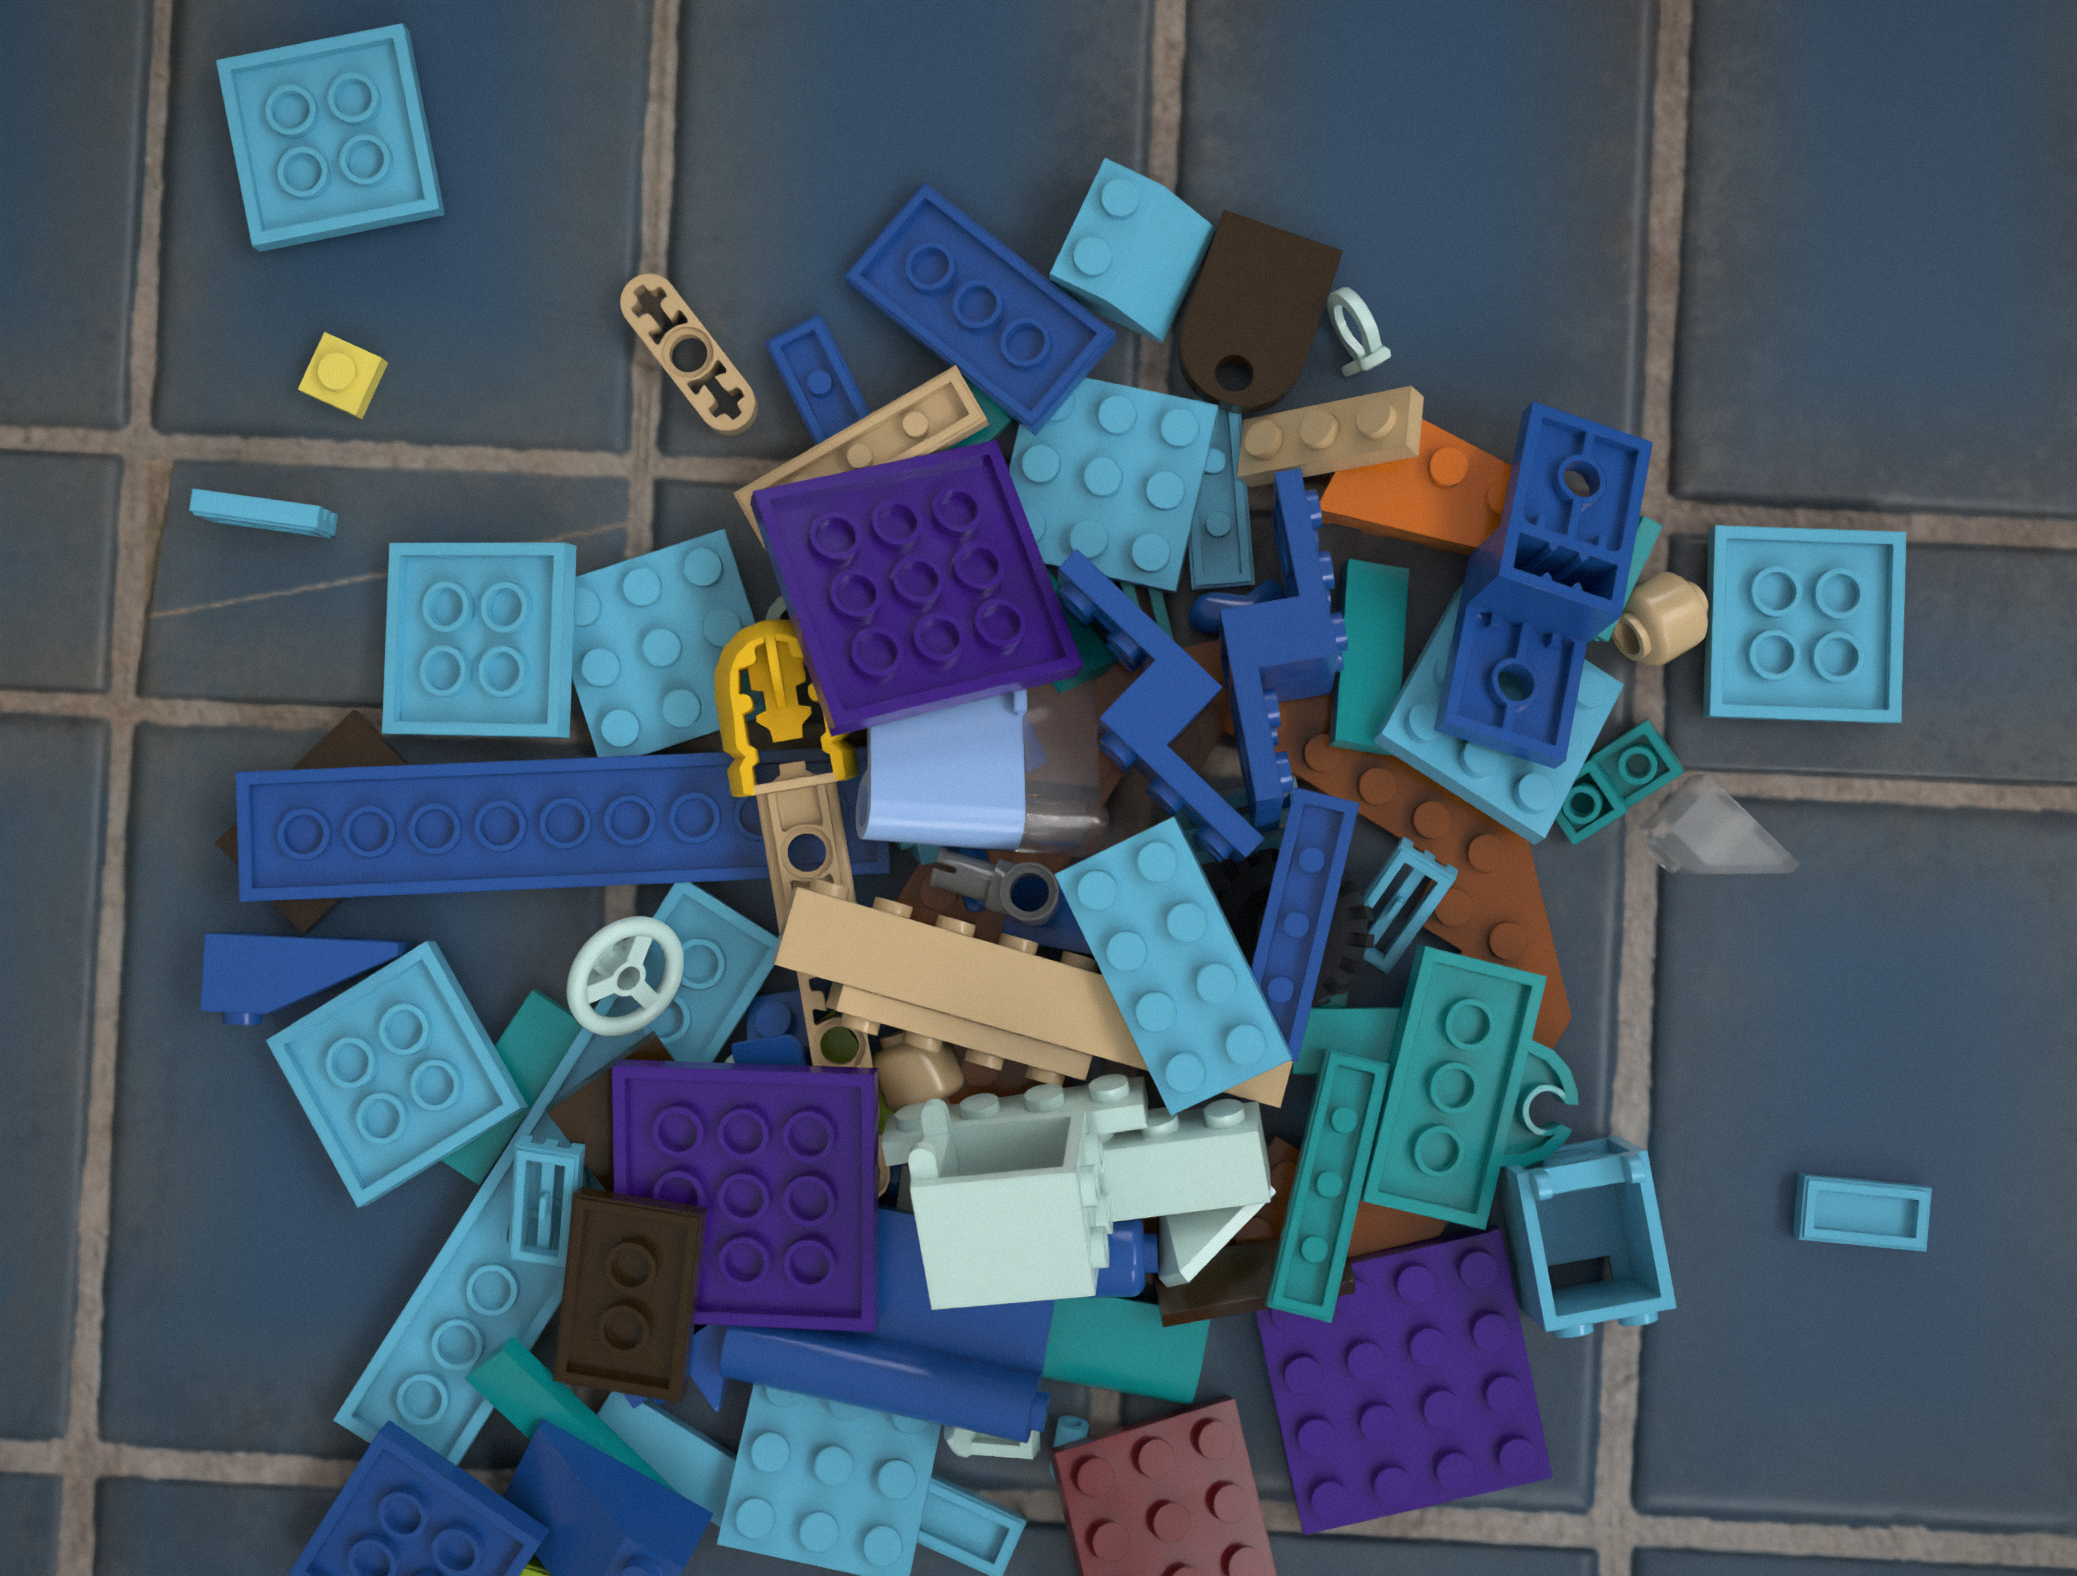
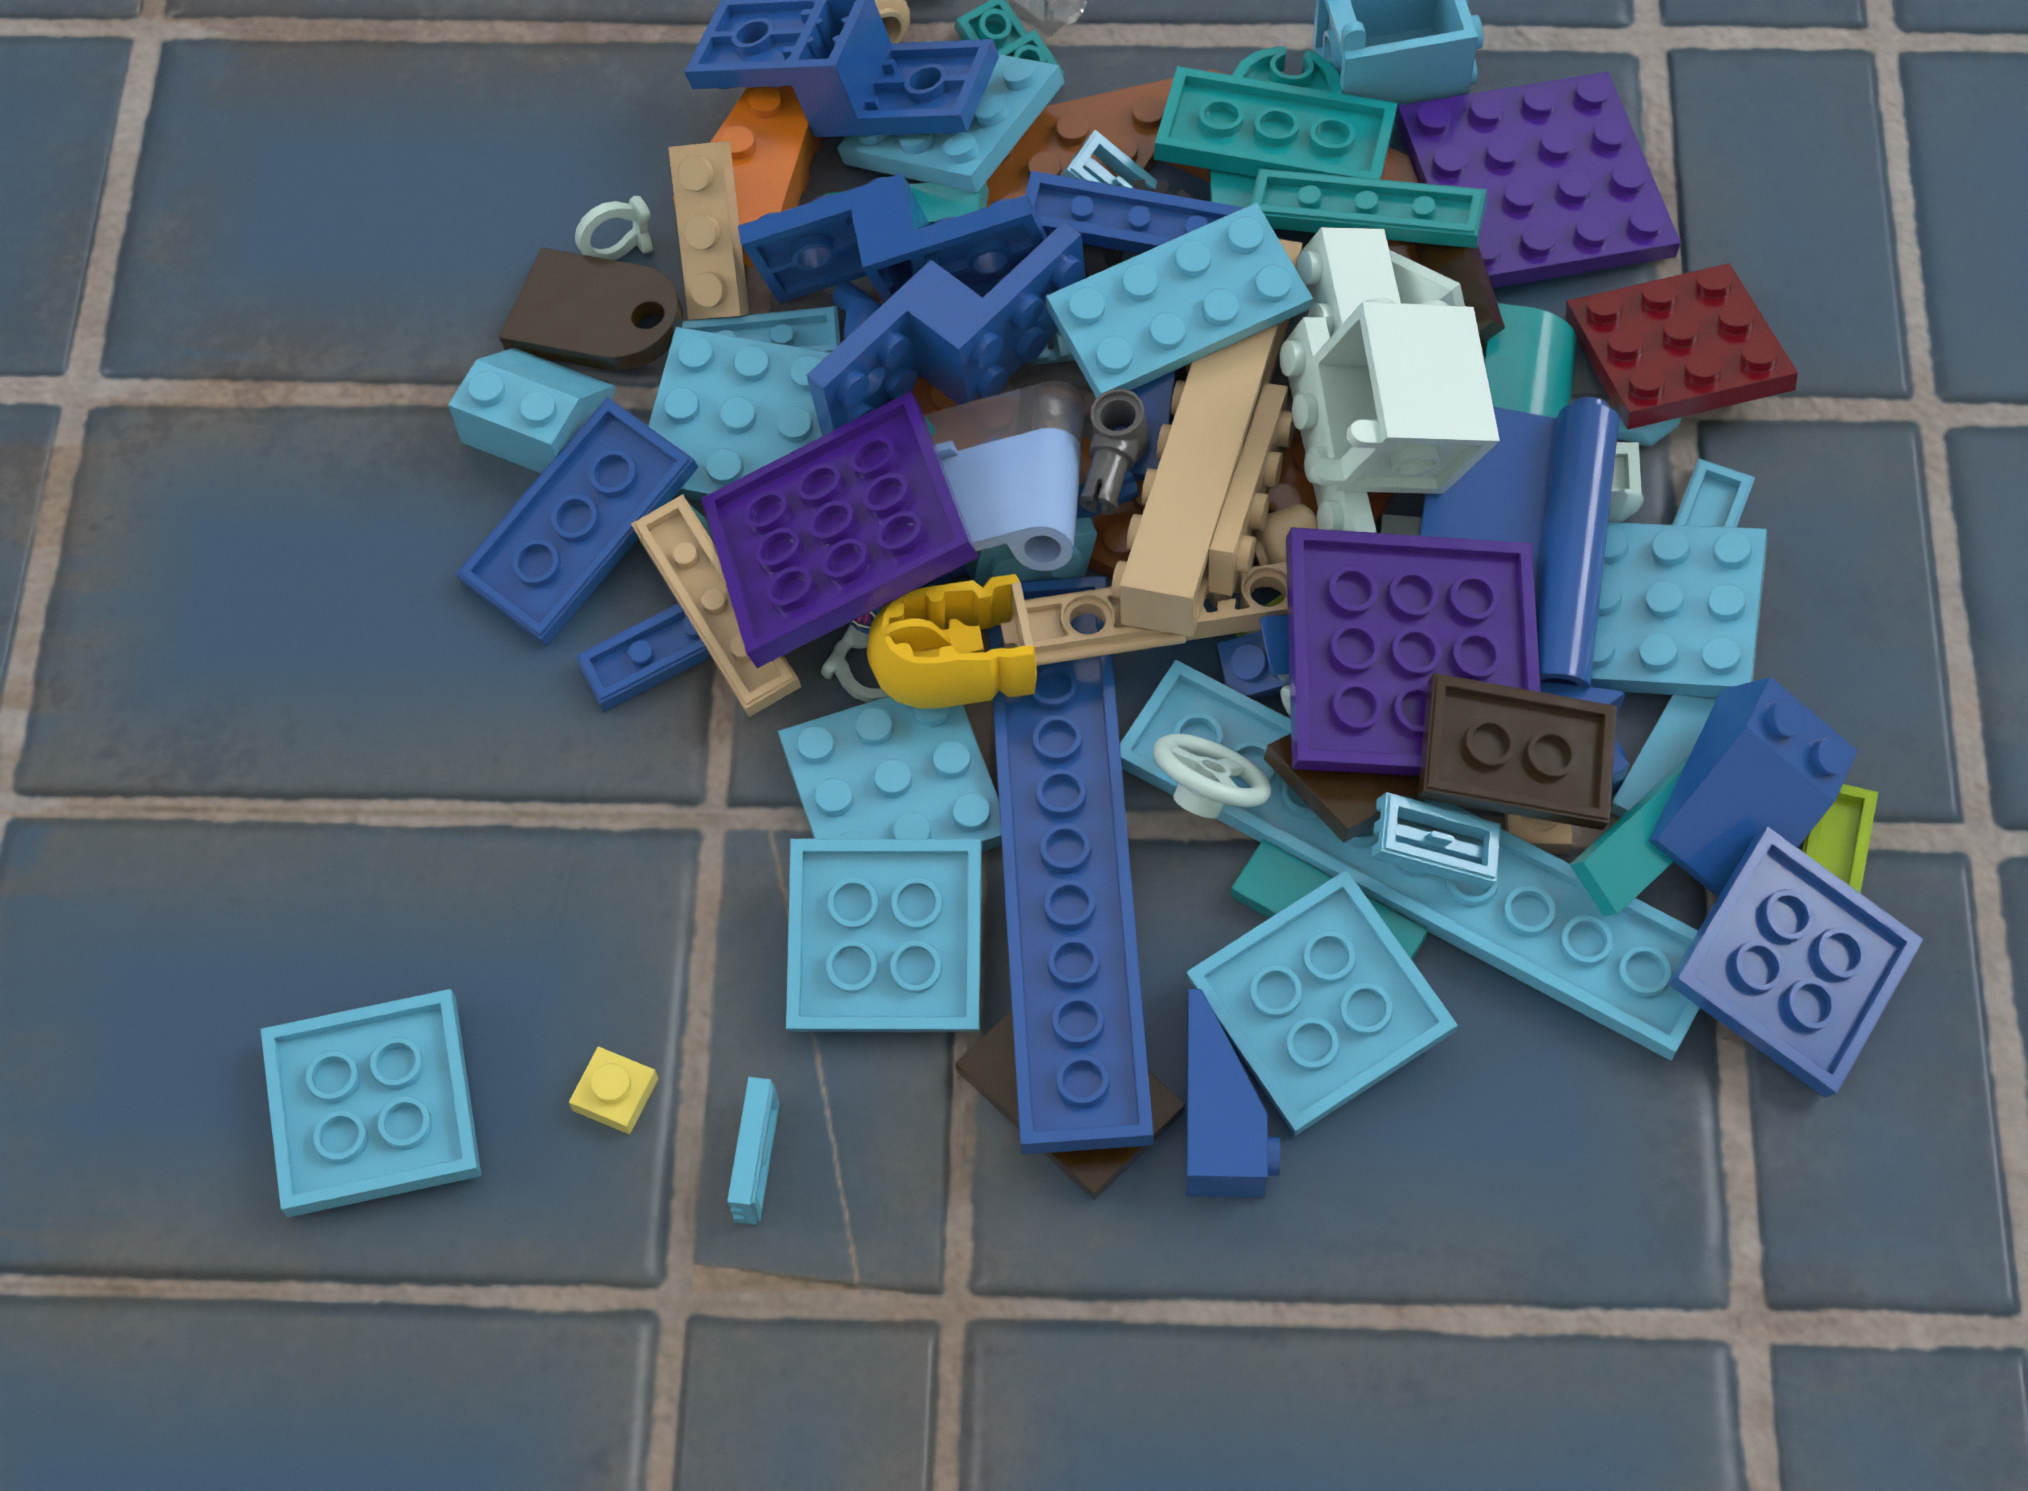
camera: 85 degrees left, 25 degrees down
(676, 308) = (613, 745): tan beam -> none

